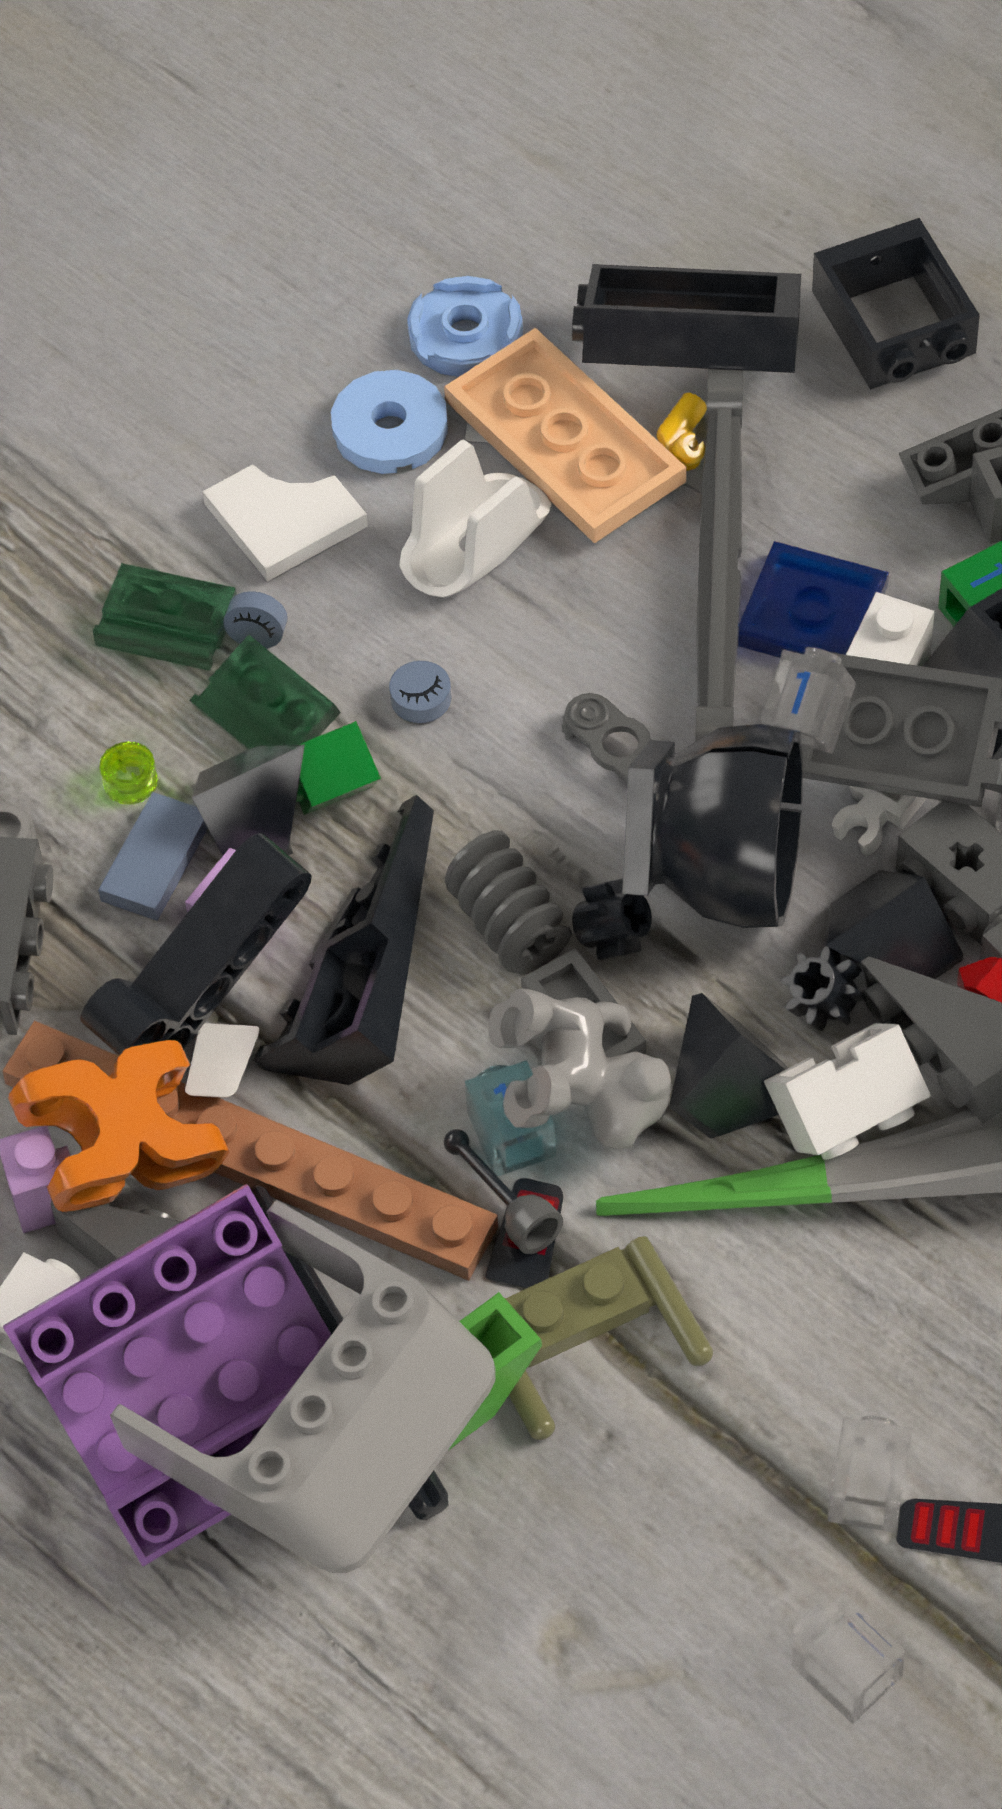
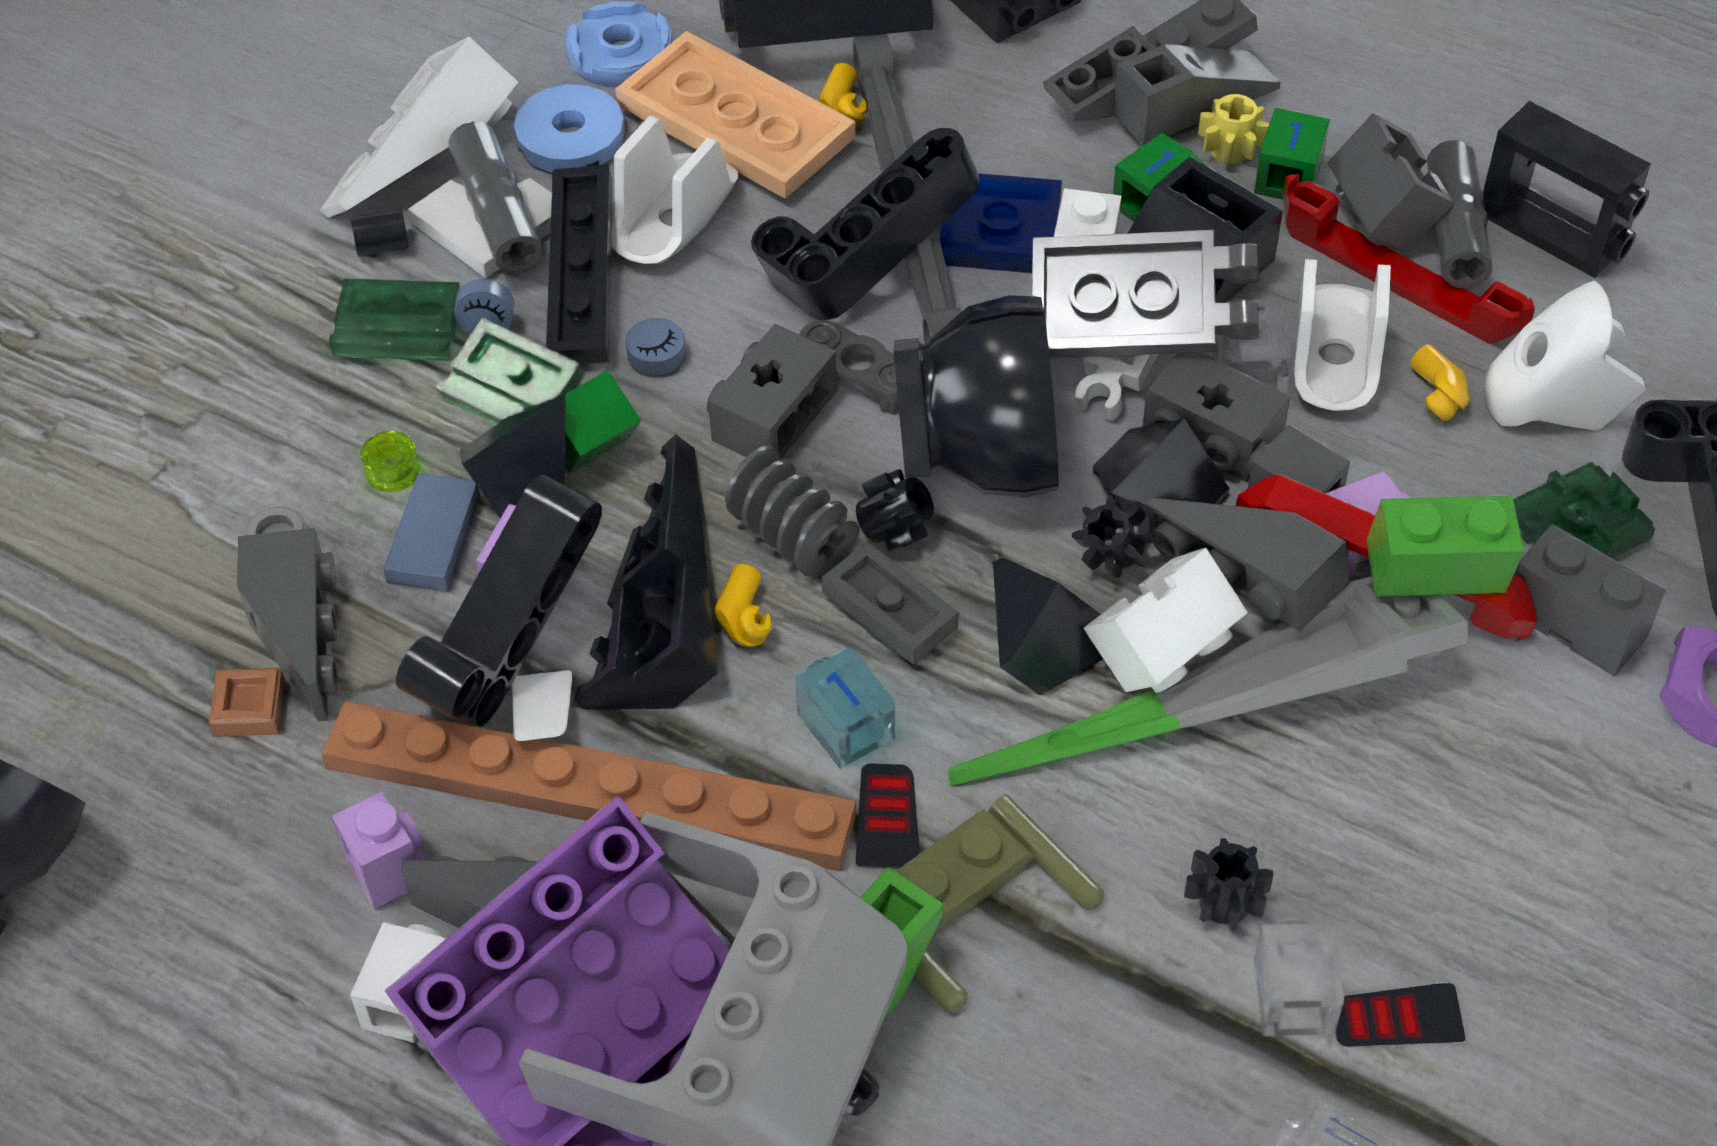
camera: 15 degrees left, 5 degrees down
(118, 1125) = (456, 777): orange piece -> none
(169, 513) = (379, 232): none -> black hinge
(259, 377) = (447, 91): none -> white wedge
(290, 497) = (495, 197): none -> dark grey axle
(362, 587) = (580, 264): none -> black plate
(431, 994) = (736, 611): none -> yellow arm
(522, 769) = (772, 393): none -> dark grey brick
(529, 1218) = (890, 797): dark grey hinge -> none
(618, 1092) = (947, 661): light grey animal -> none
(667, 605) = (873, 232): none -> black beam
(810, 697) = (1039, 266): clear brick -> none
(829, 1384) = (1228, 883): none -> black gear

